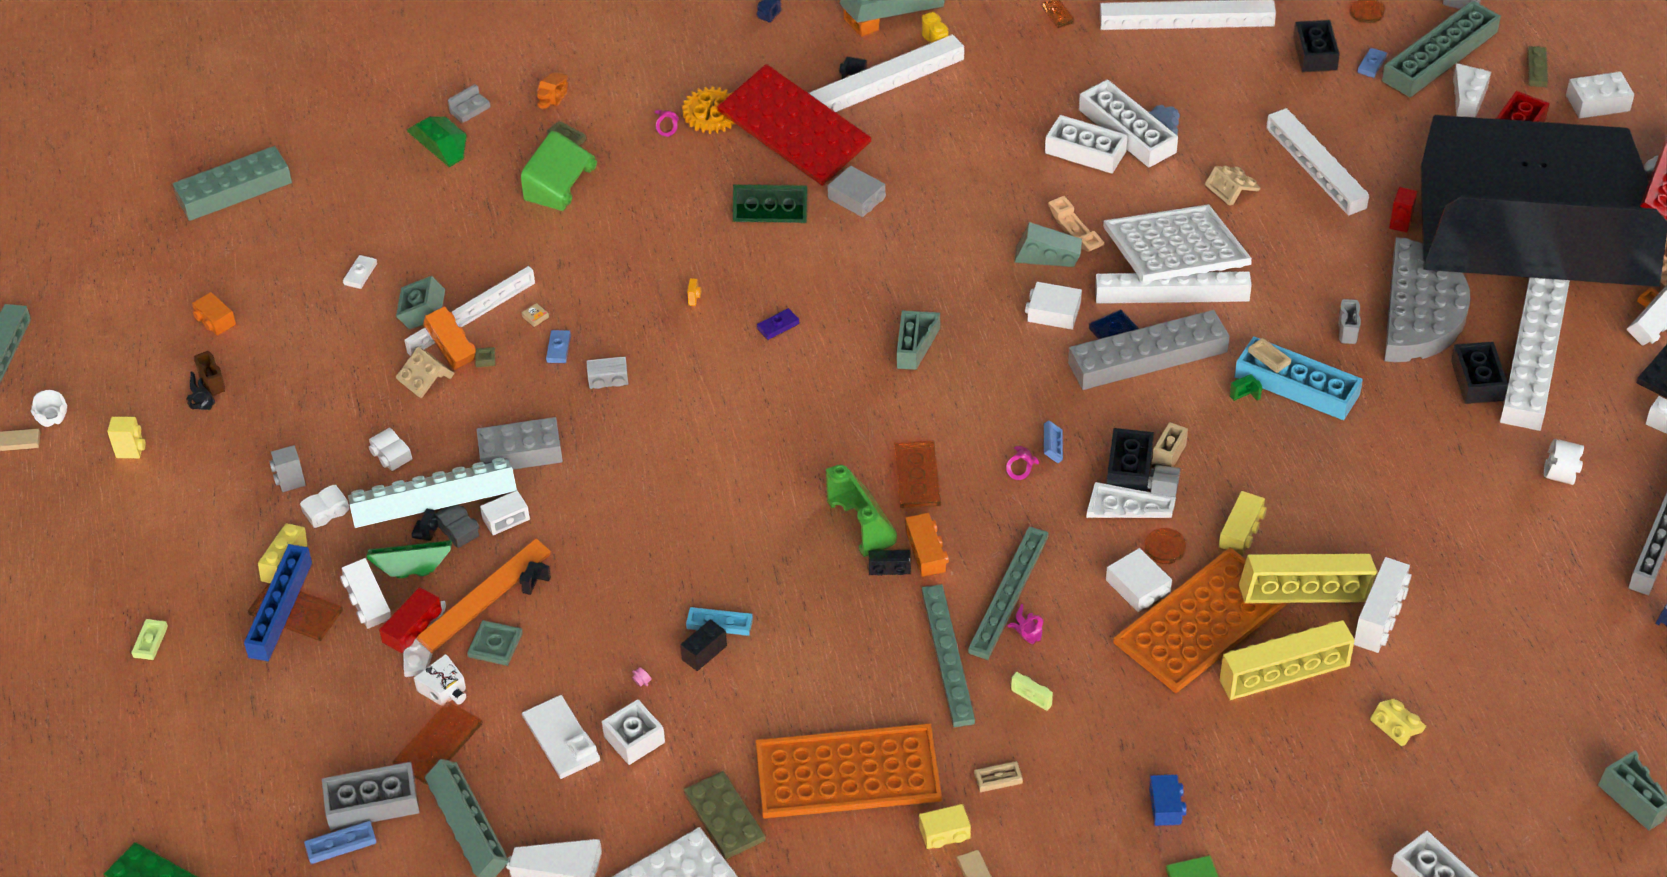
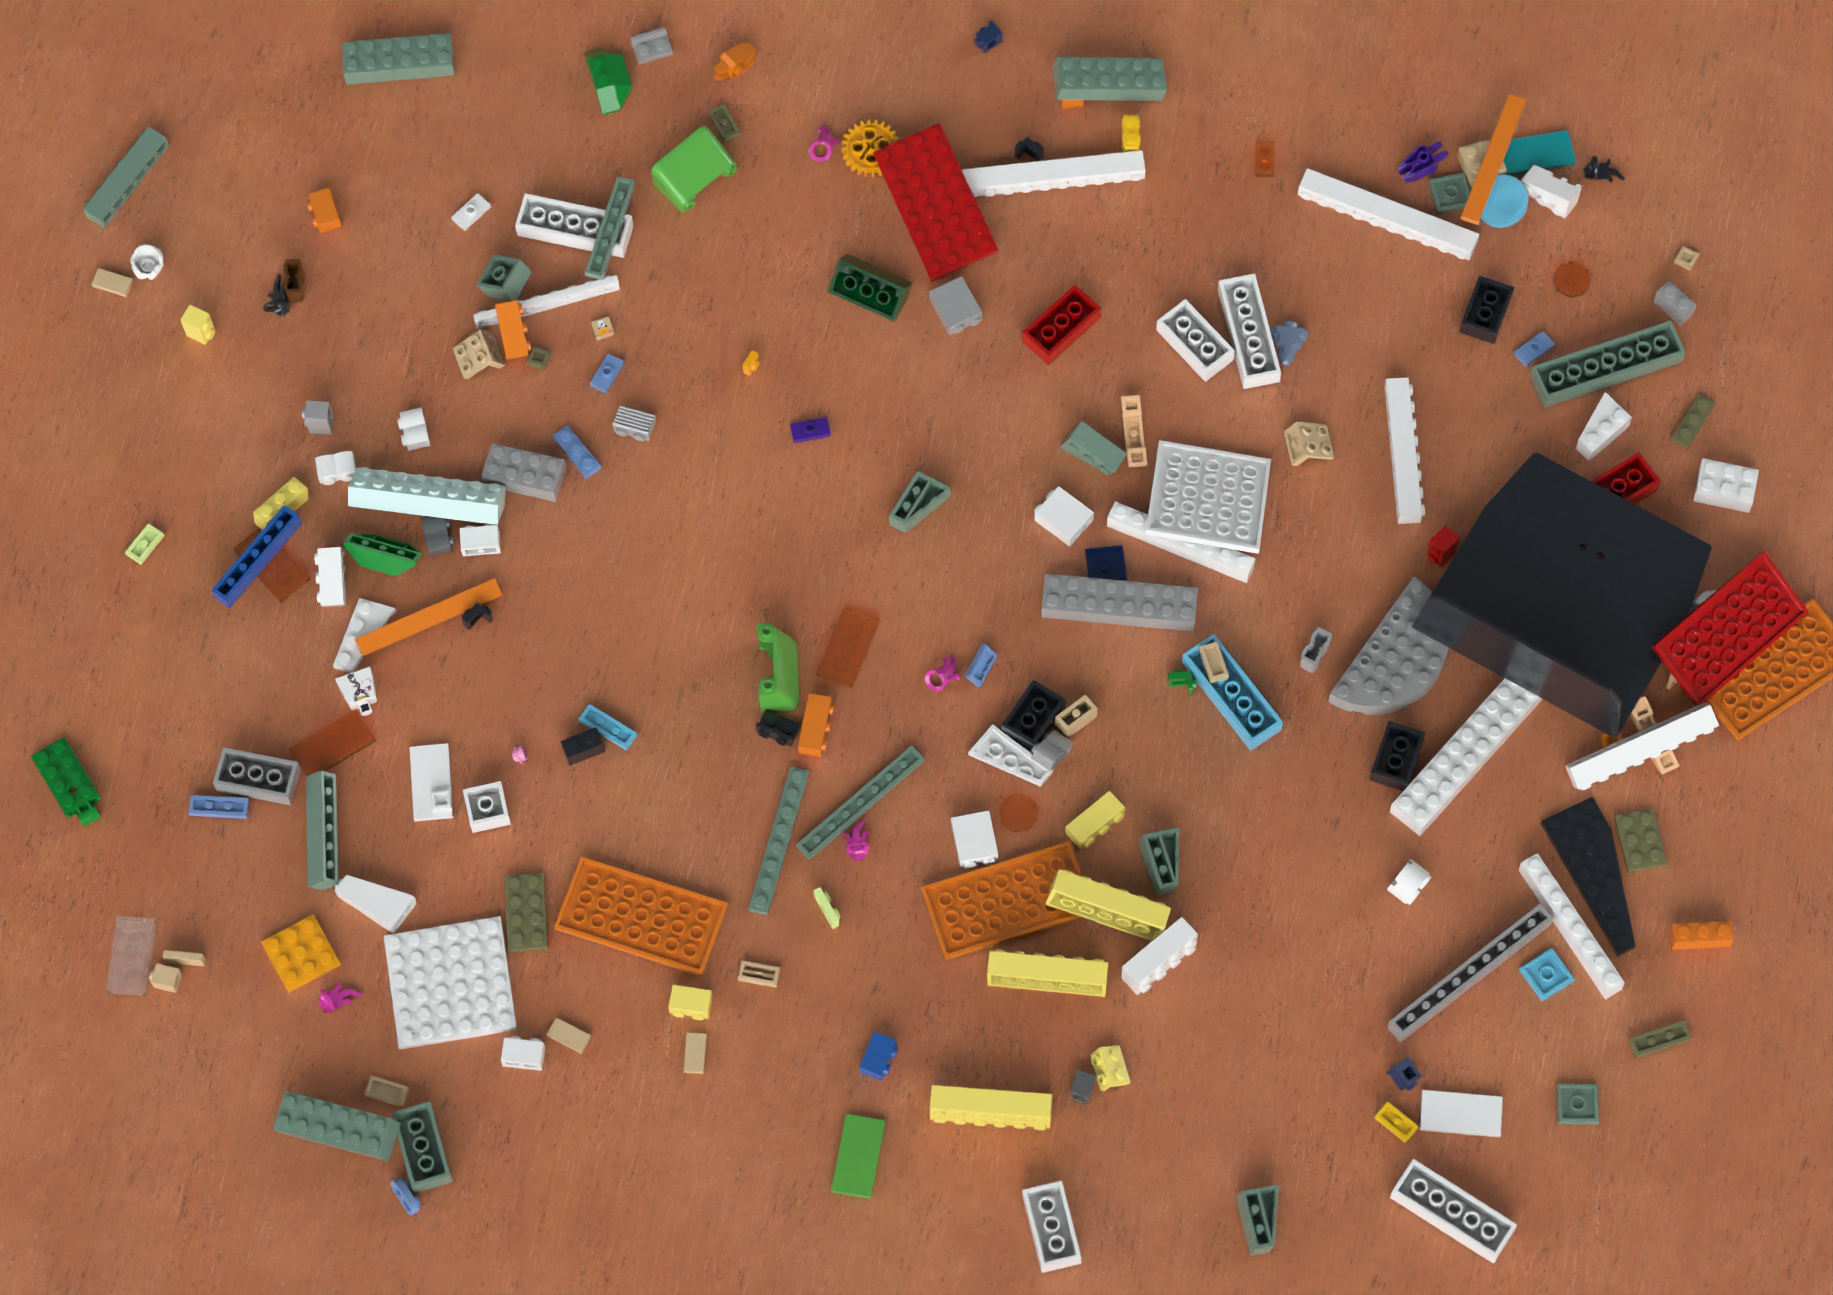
camera: 25 degrees right, 20 degrees up
(410, 620) = (355, 621): red brick -> none
(425, 528) = (409, 526): black bracket -> none
(467, 245) = (567, 224): none -> white brick
(495, 642) = (418, 667): sand green tile -> none
(505, 229) = (610, 228): none -> sand green plate
(565, 415) = (576, 452): none -> medium blue plate
(961, 171) = (1061, 325): none -> red brick
(1310, 796) = (990, 1107): none -> light yellow brick
(1326, 528) = (1161, 859): none -> sand green wedge
(1384, 746) = (1082, 1087): none -> dark grey brick

